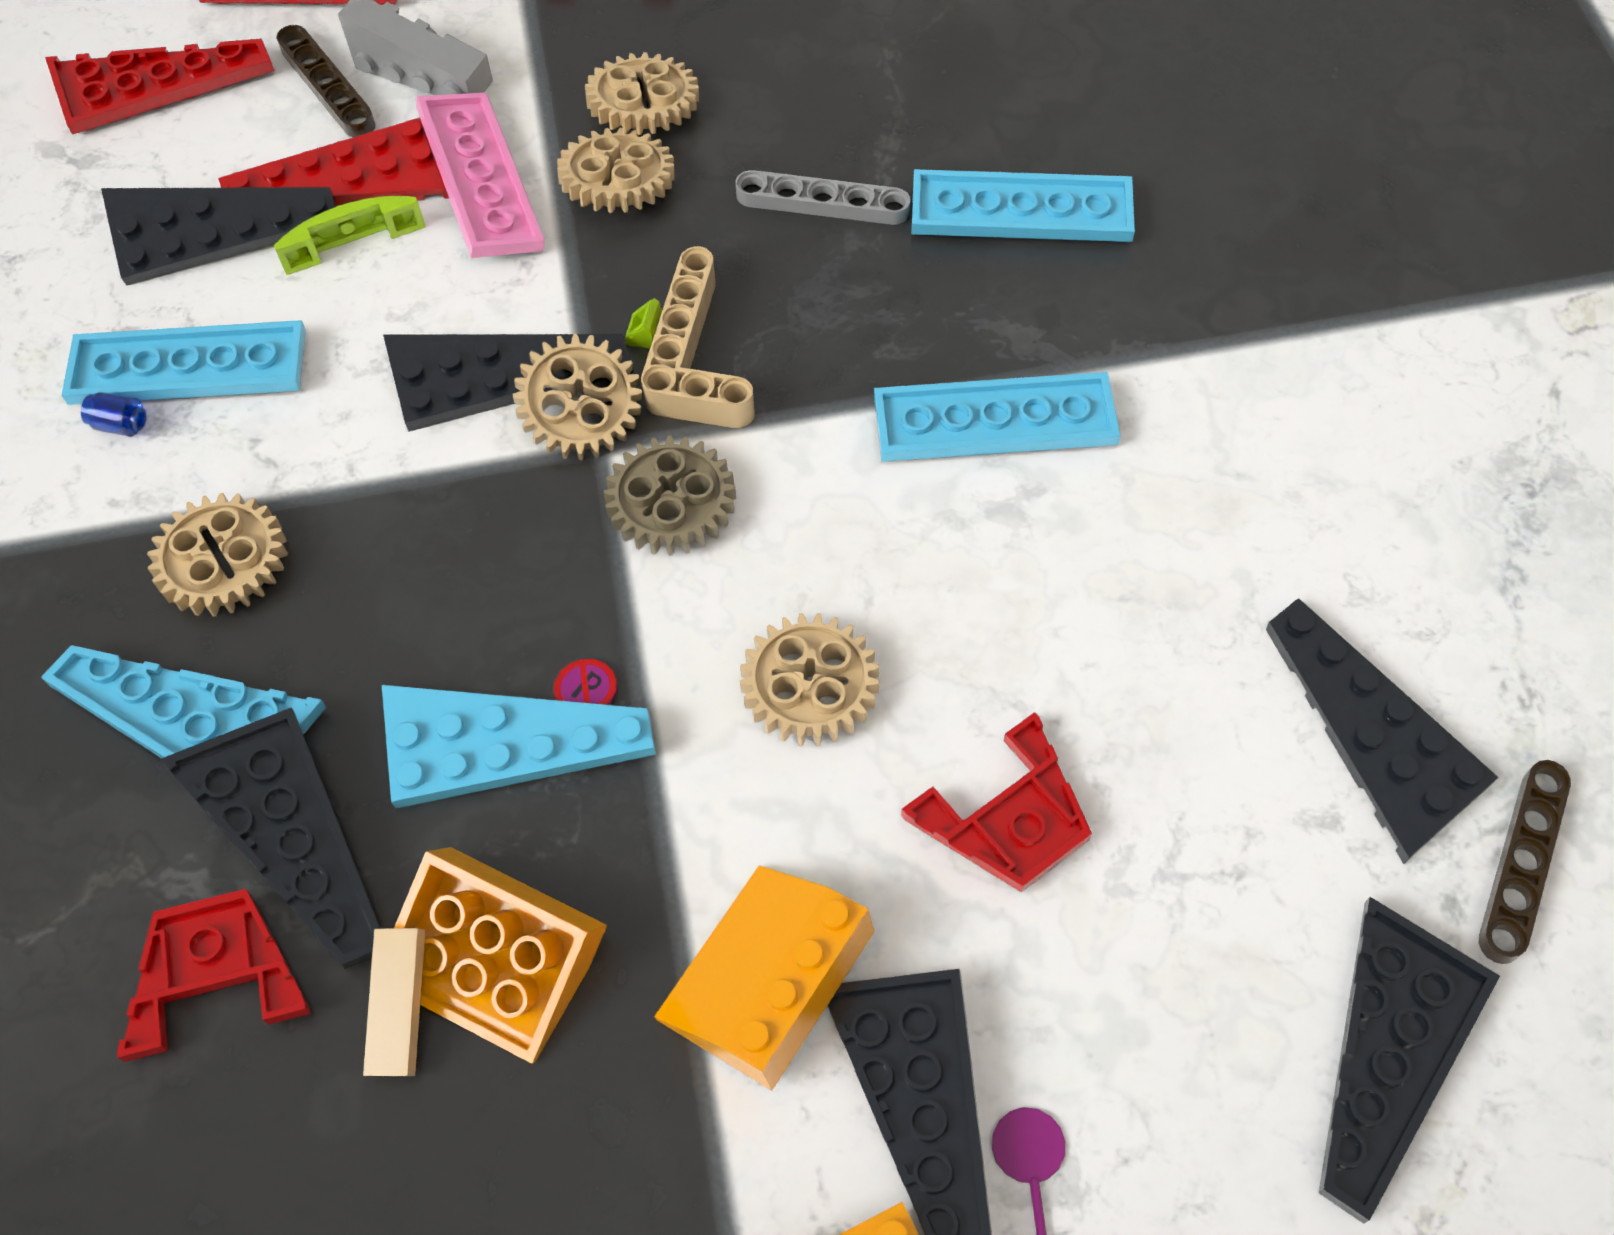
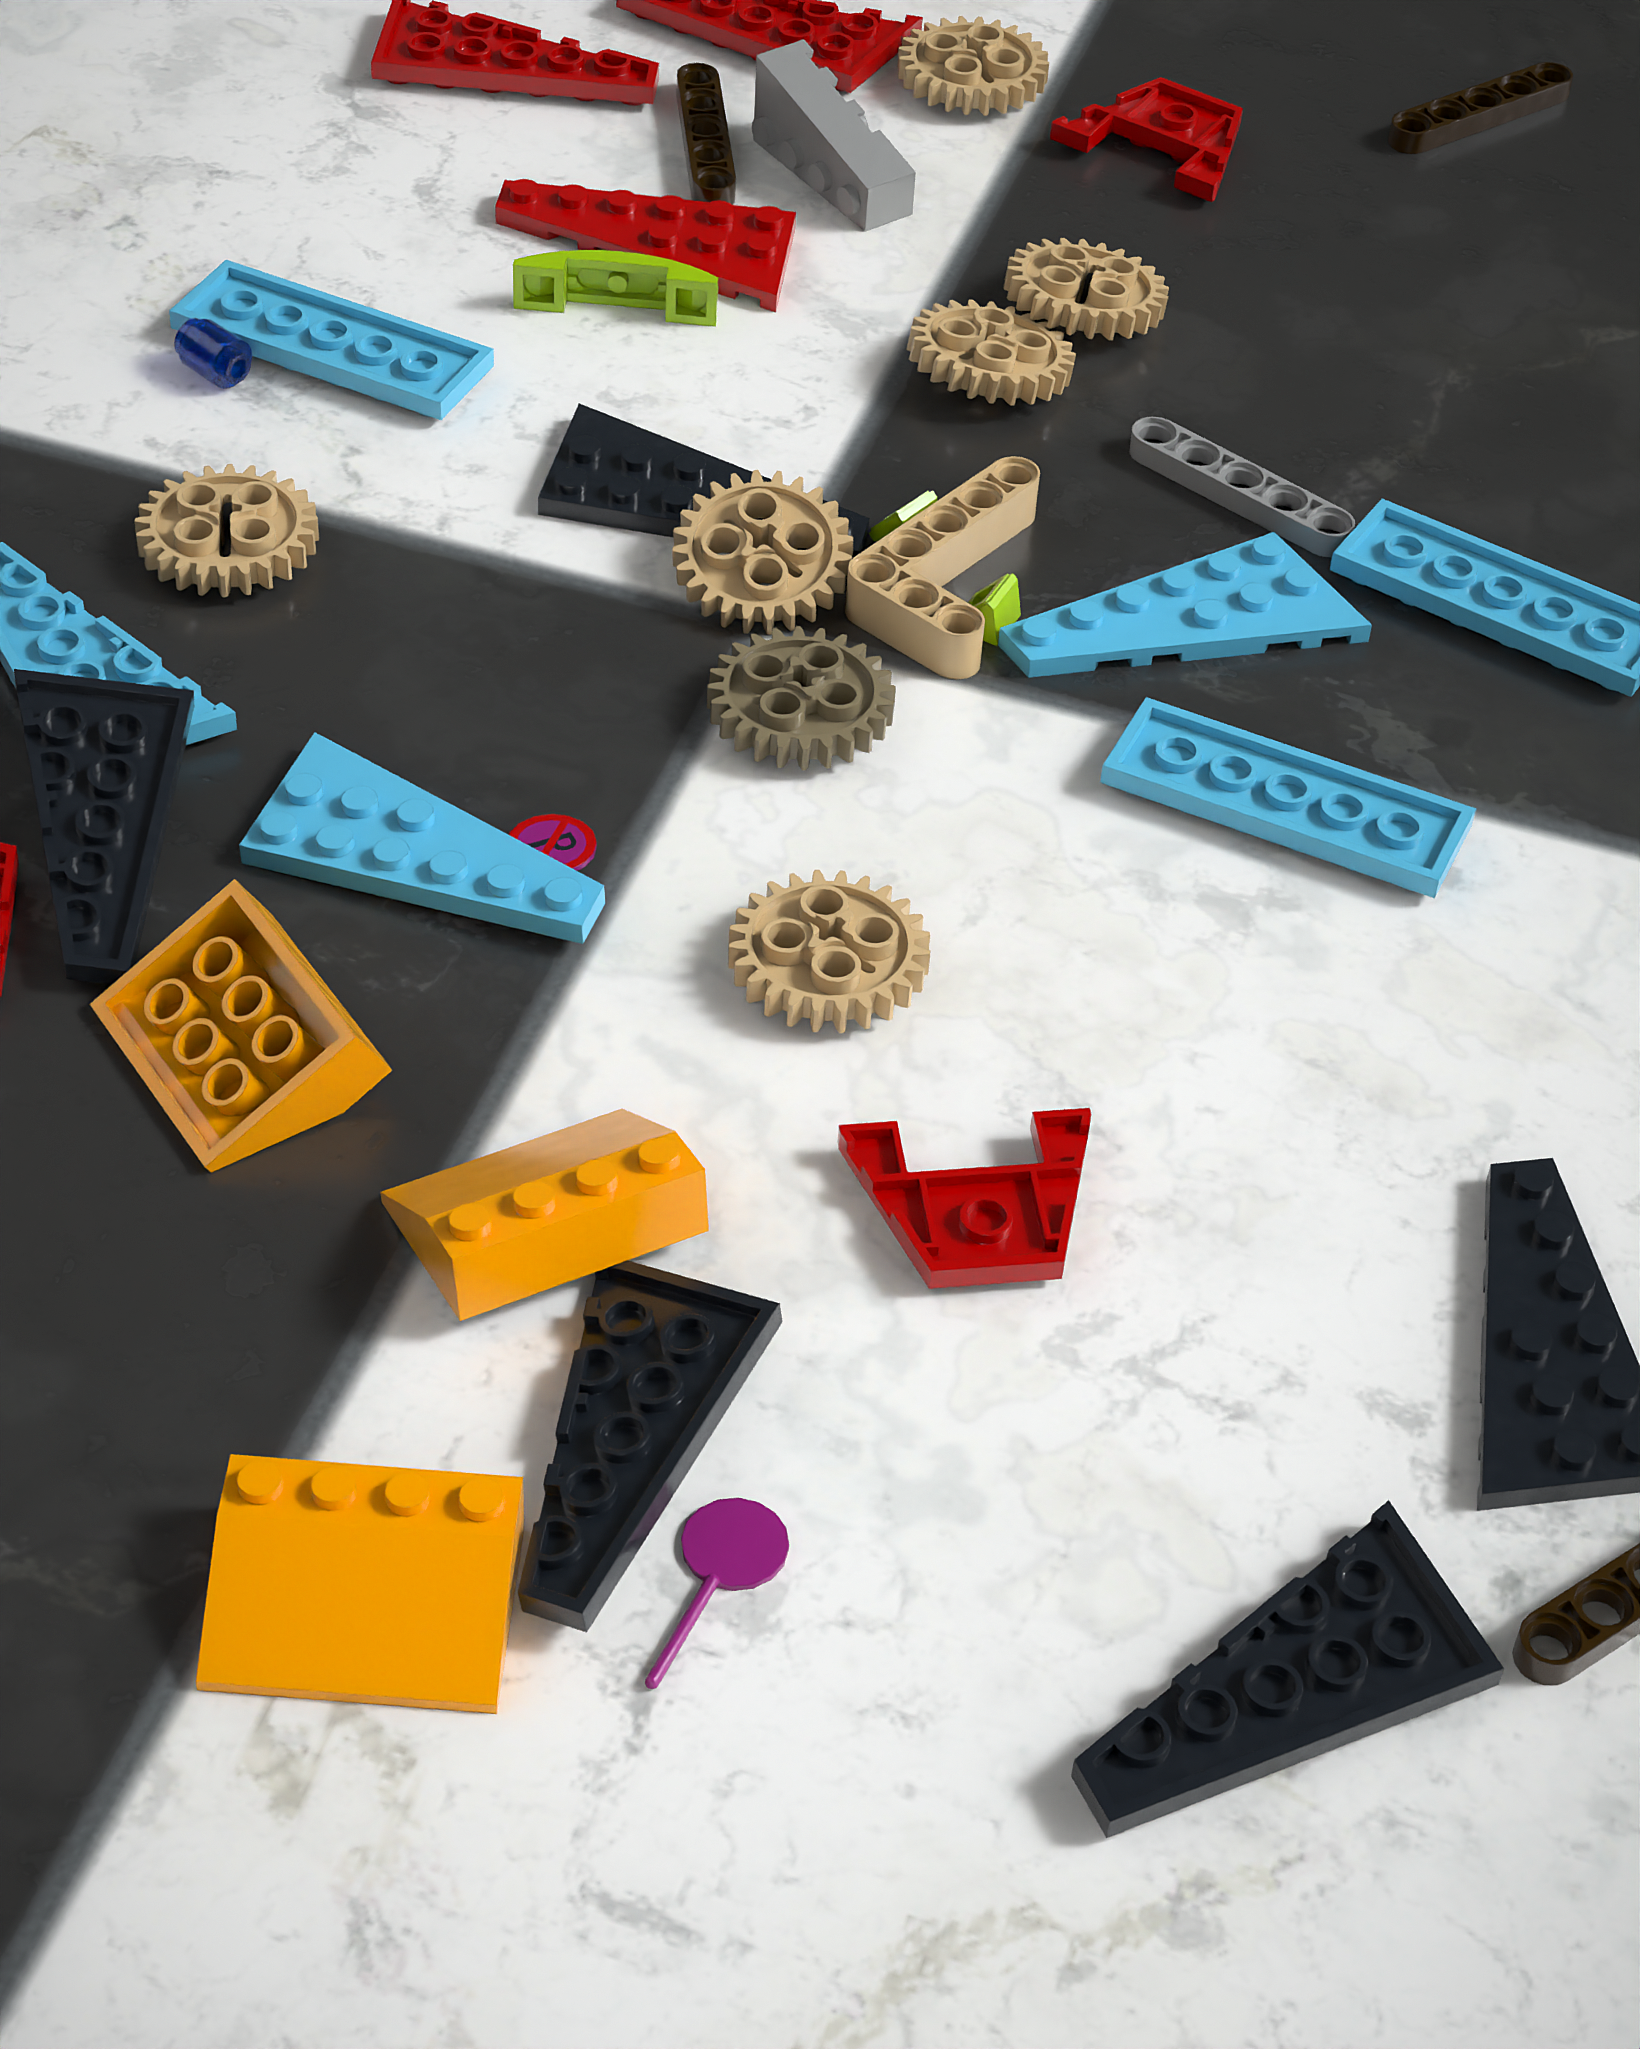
camera: 25 degrees right, 15 degrees down
(187, 227) = (432, 211): black wing -> none
(394, 1002) = (94, 1024): tile -> none
(479, 175) = (816, 292): bright pink plate -> none
(737, 361) = (999, 605): none -> lime slope
(855, 304) = (1199, 610): none -> medium azure wing

